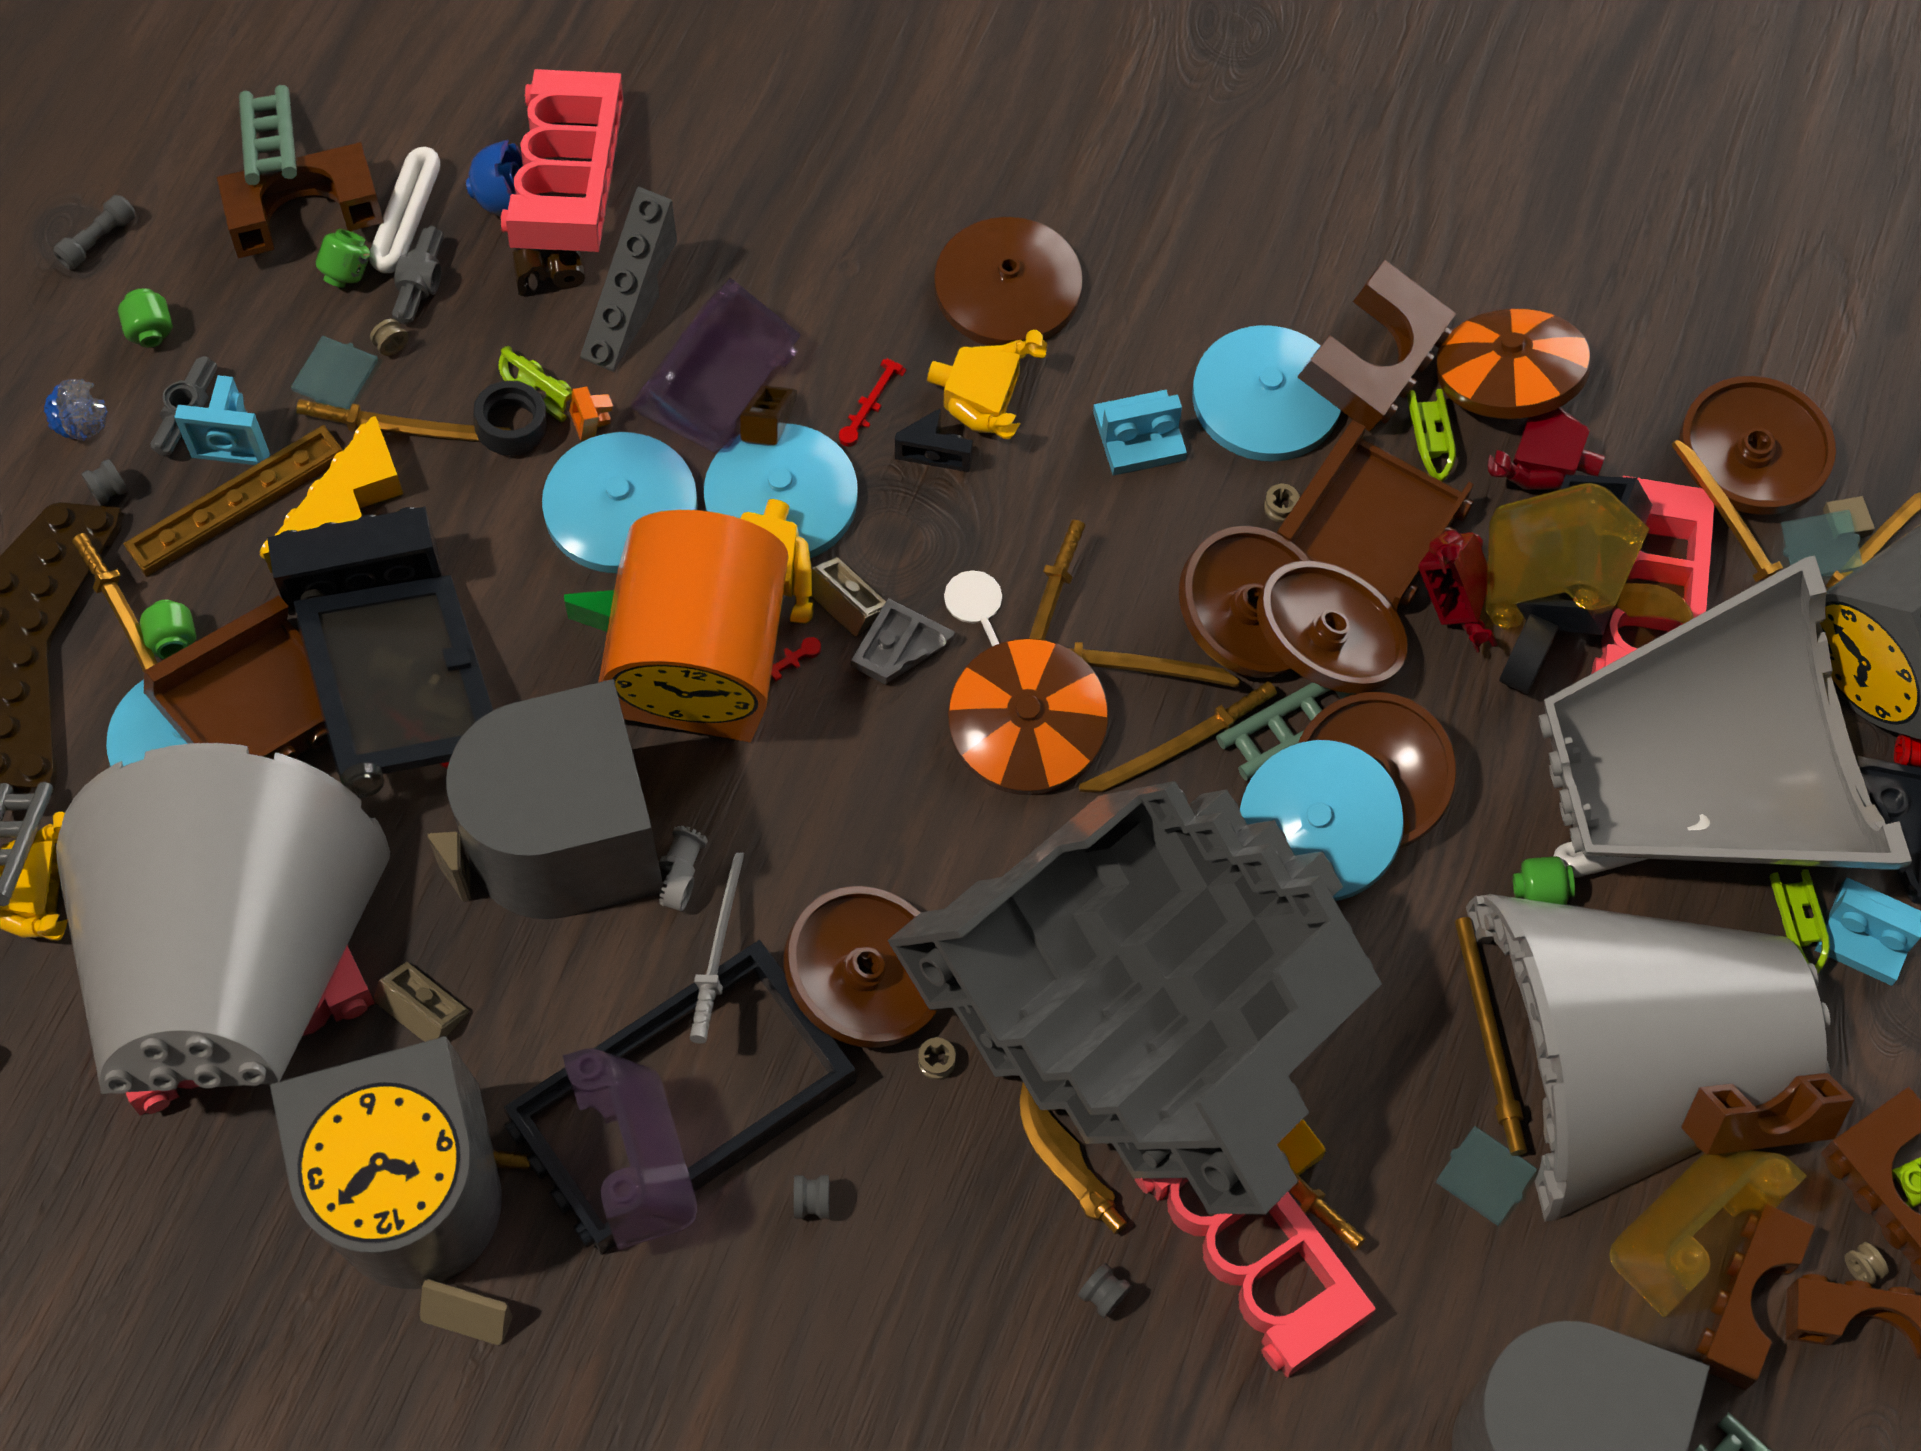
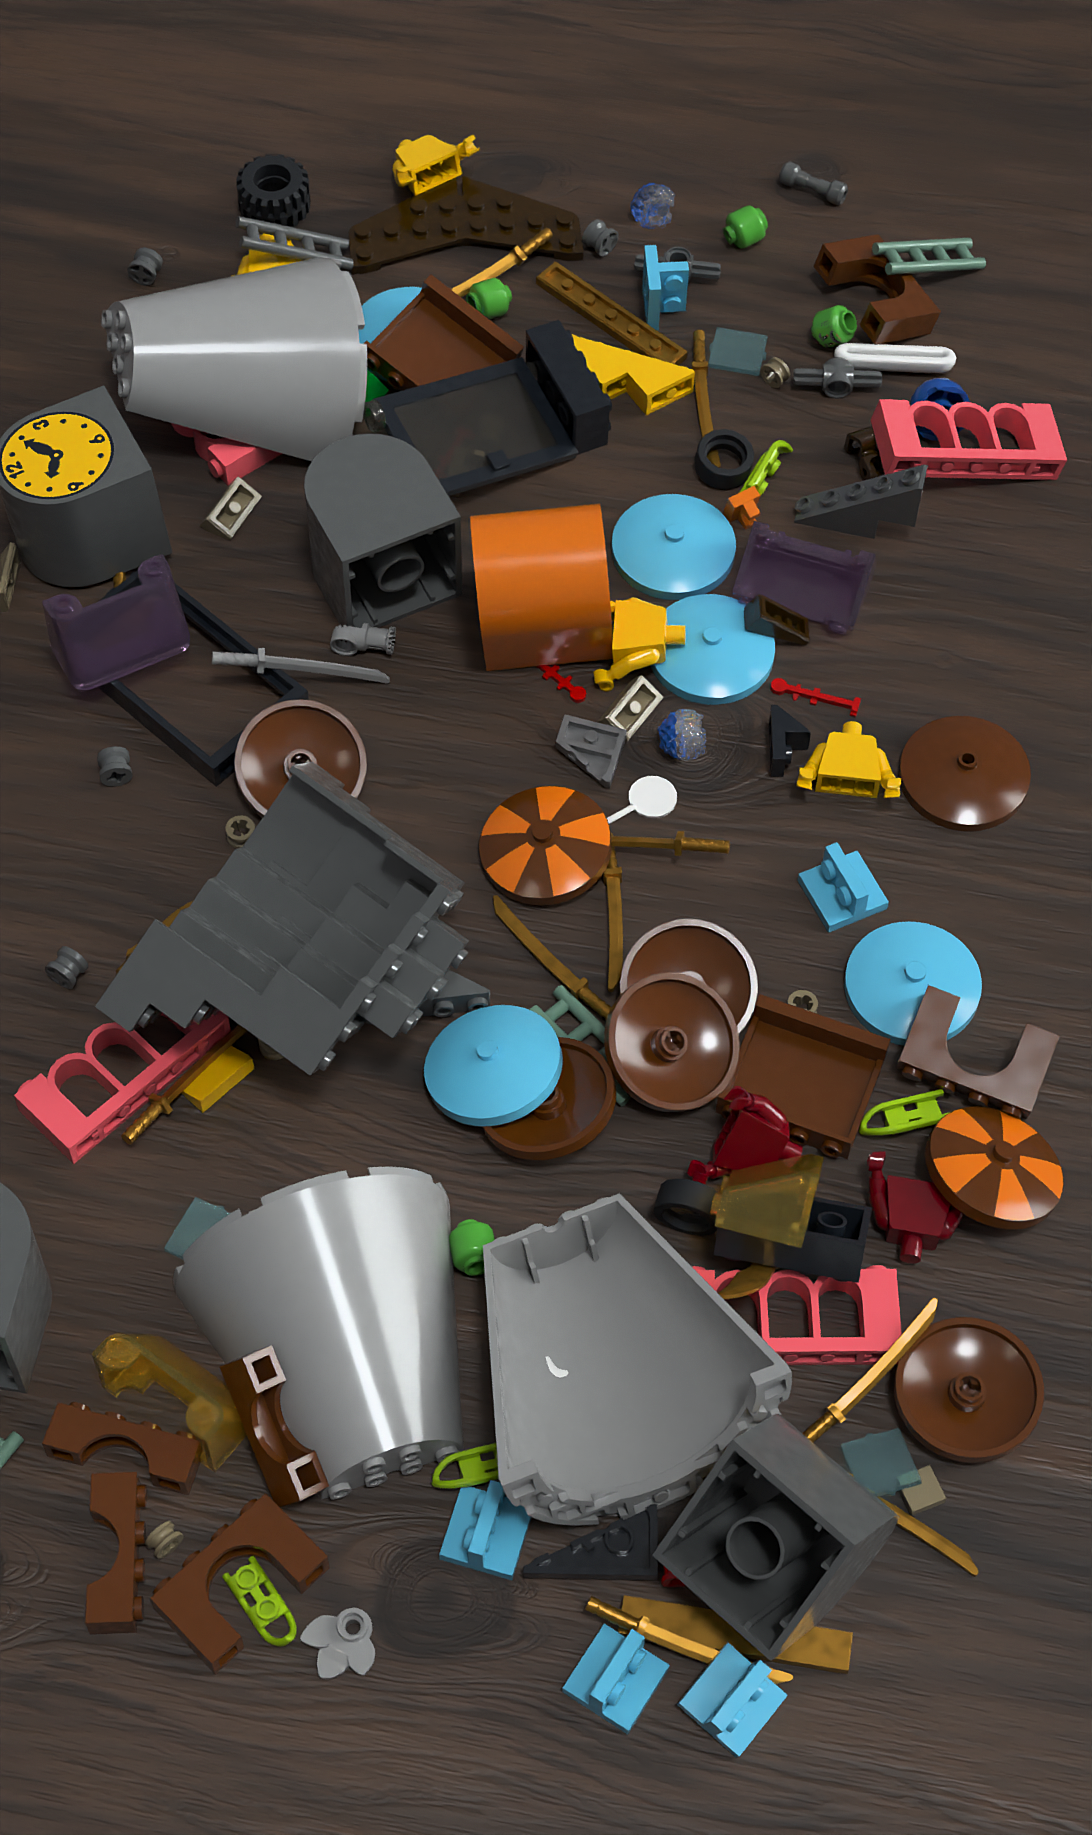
camera: 80 degrees right, 5 degrees down
(909, 540) = (682, 735): none -> clear piece

